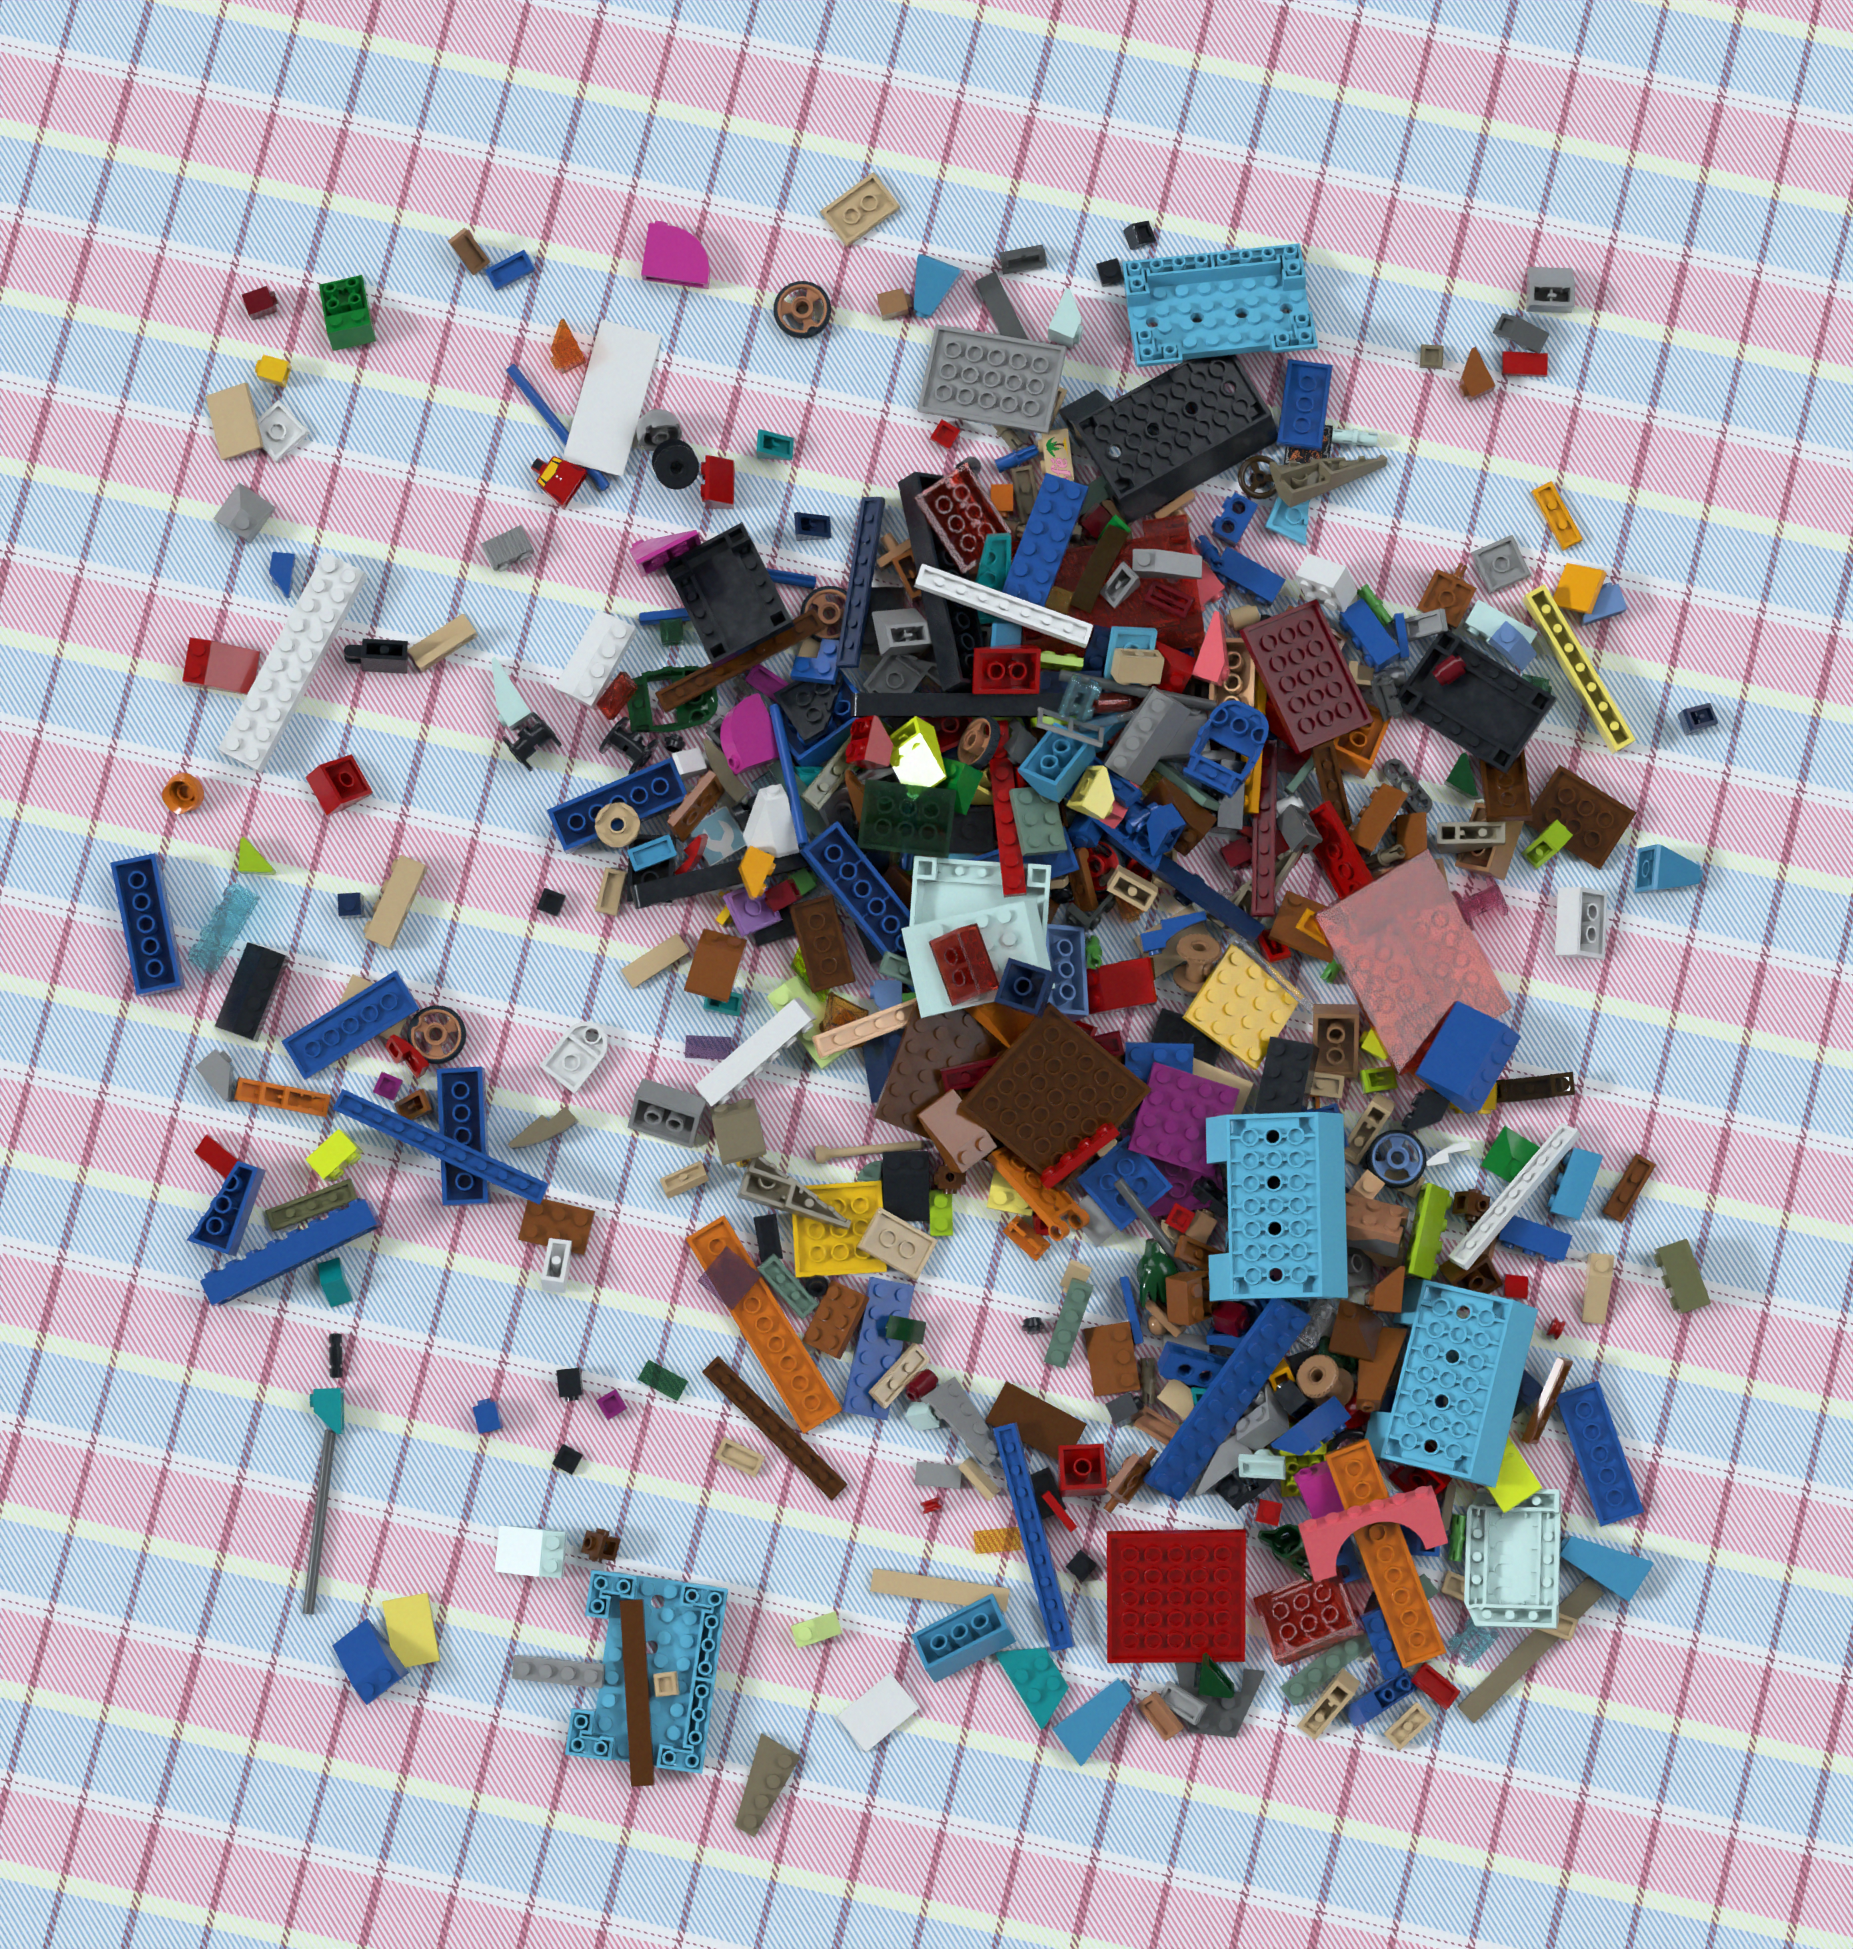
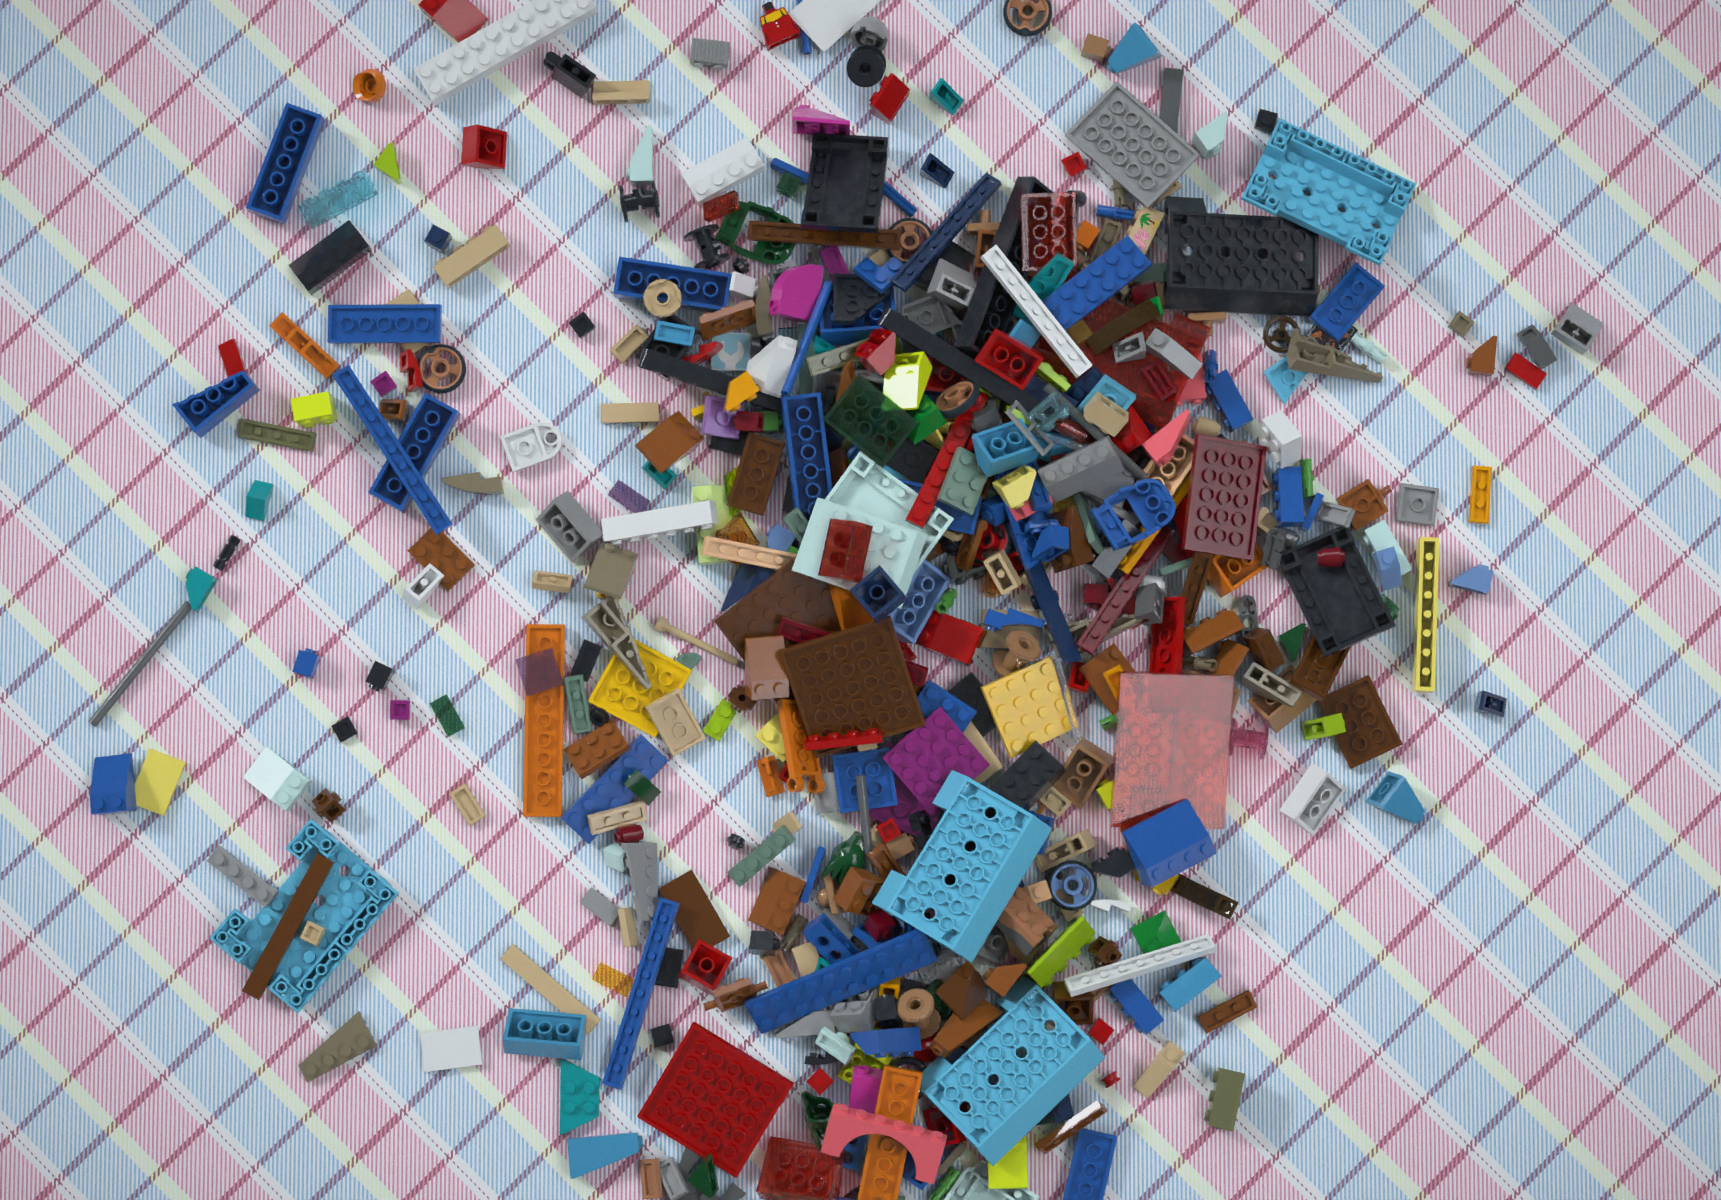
camera: 25 degrees right, 0 degrees up
(218, 1073) = (269, 299): light grey slope -> none
(290, 1253) = (240, 459): blue brick -> none
(775, 1428) = (505, 799): reddish brown tile -> none
(816, 1629) = (444, 961): yellowish green slope -> none
(906, 1184) = (708, 684): black slope -> none
(931, 1505) = (581, 924): red bush -> none
(1023, 259) = (1209, 73): dark grey hinge -> none
(1059, 1511) = (670, 986): red tile -> none
(1139, 234) = (1304, 107): black slope -> none
(1233, 1492) = (803, 1051): black plate -> none
(1238, 521) = (1246, 356): blue brick -> none
(1377, 1079) = (1094, 820): lime slope -> none
(1439, 803) = (1264, 648): none -> reddish brown brick
(1579, 588) = (1462, 556): light orange tile -> none

